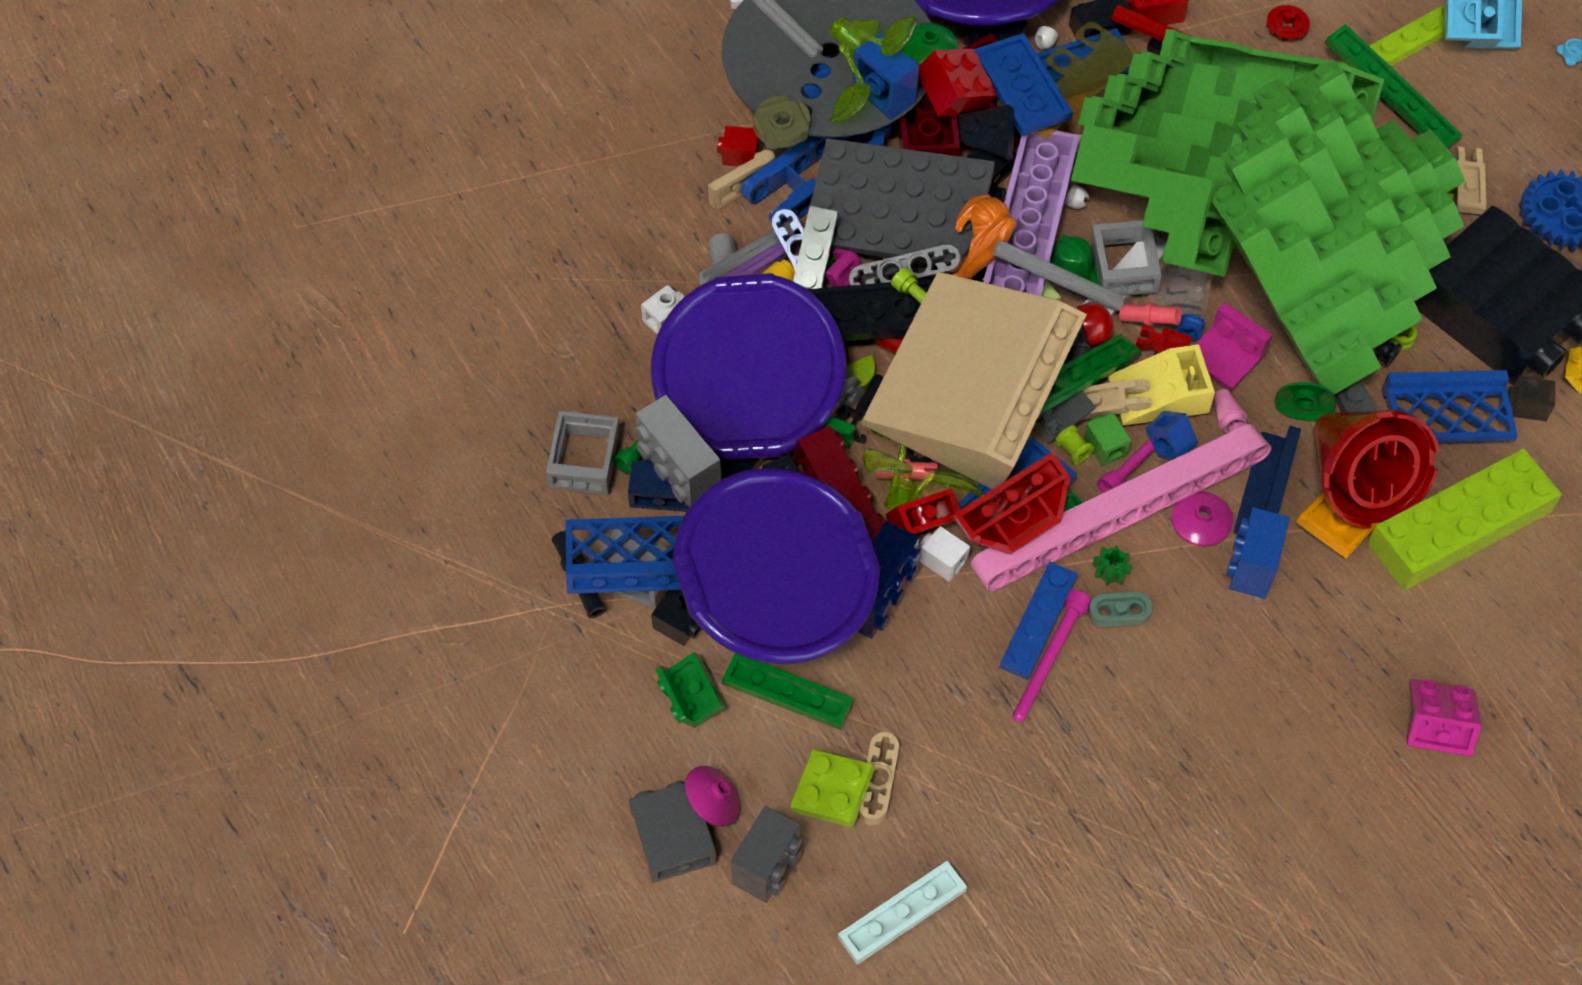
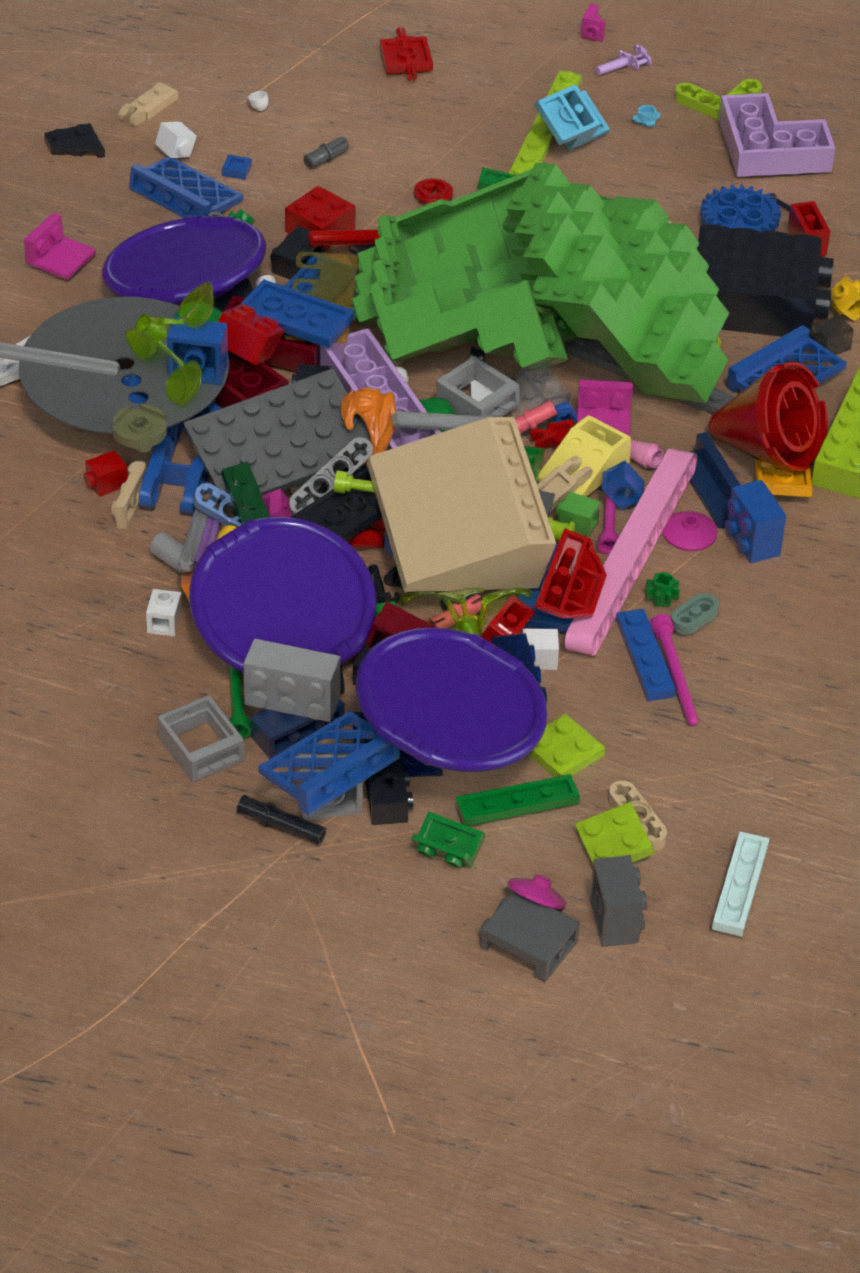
camera: 40 degrees left, 15 degrees down
(878, 665) = (566, 748): none -> lime plate
(989, 130) = (300, 356): black wing -> none
(1305, 401) = (692, 414): green dish -> none

